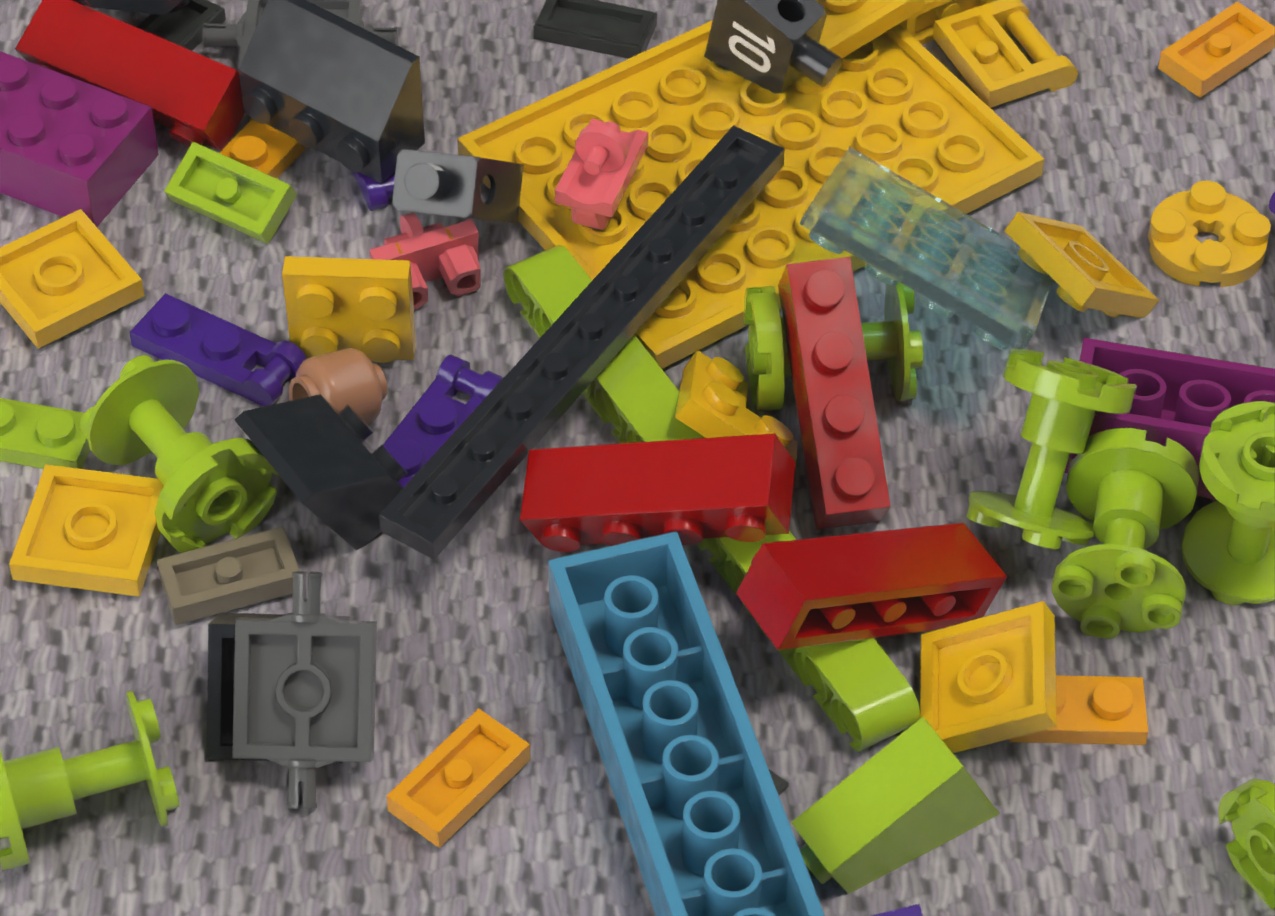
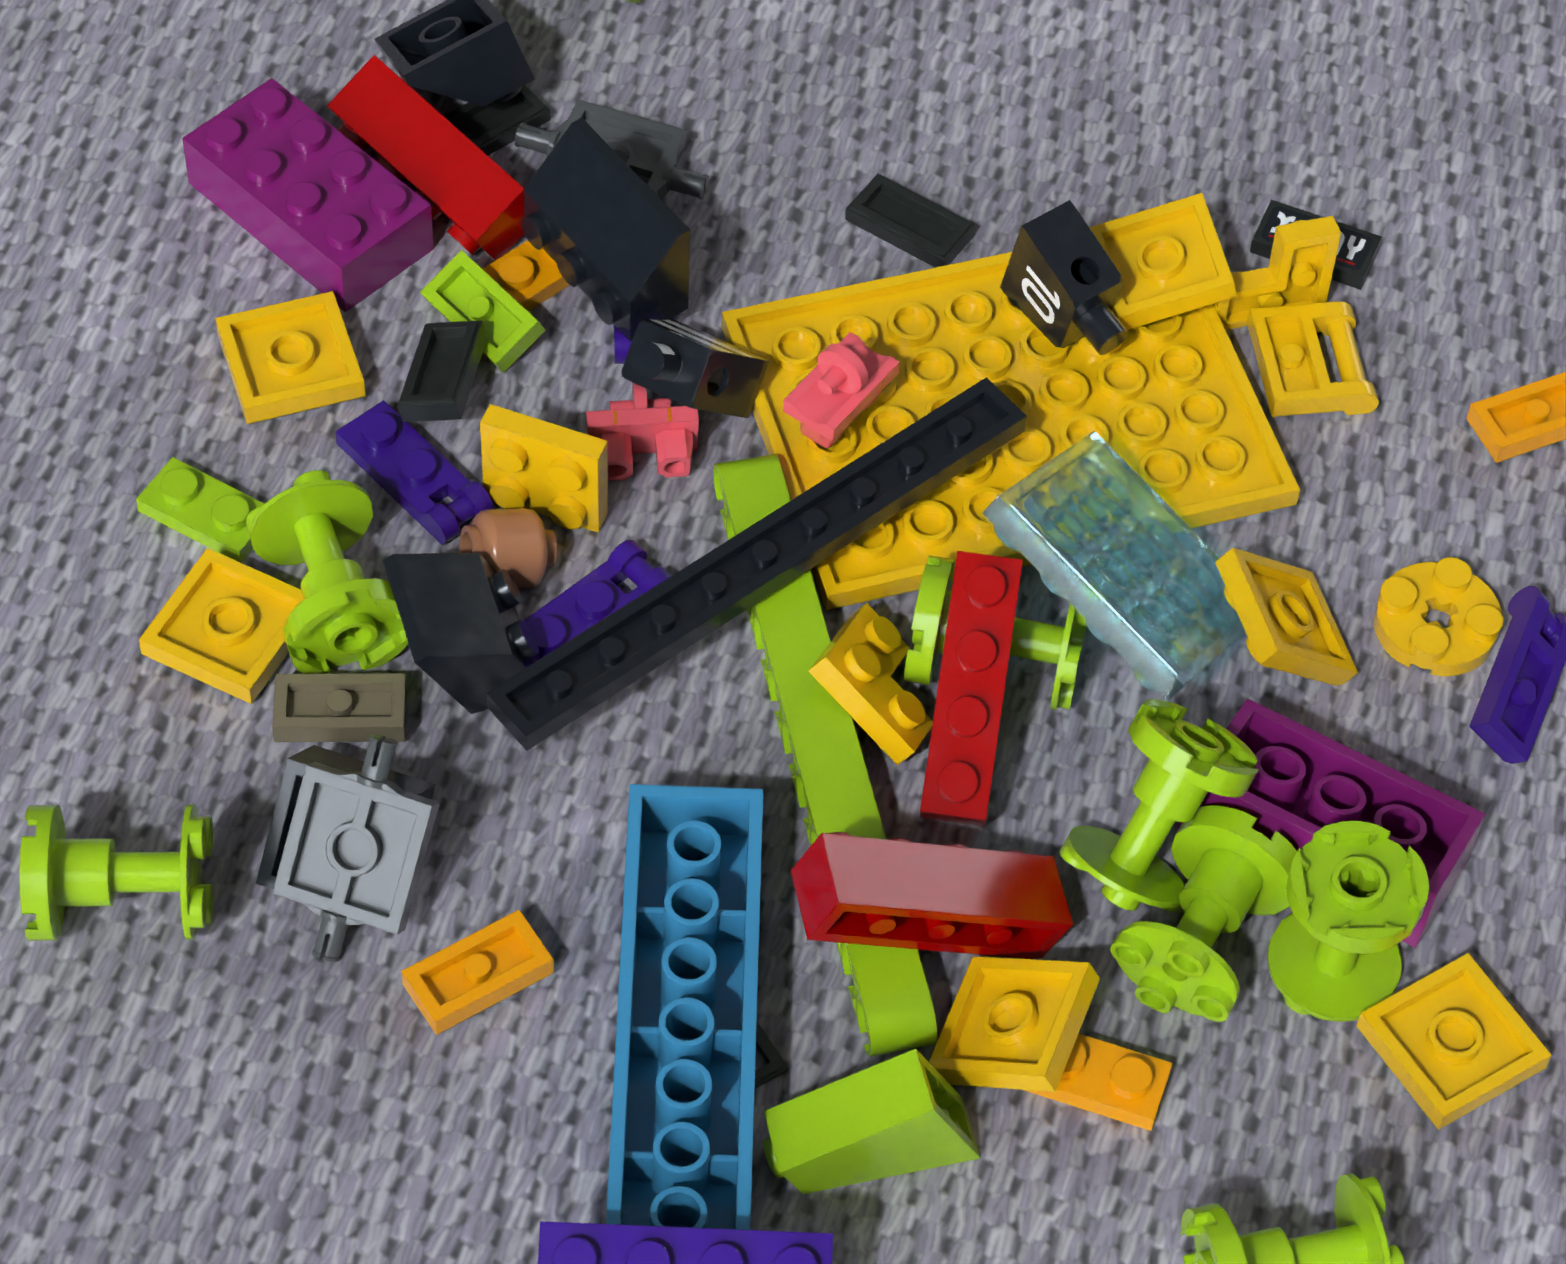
camera: 15 degrees right, 5 degrees up
(215, 251) = (442, 371): none -> pearl dark grey tile
(658, 487) = (764, 743): red brick -> none

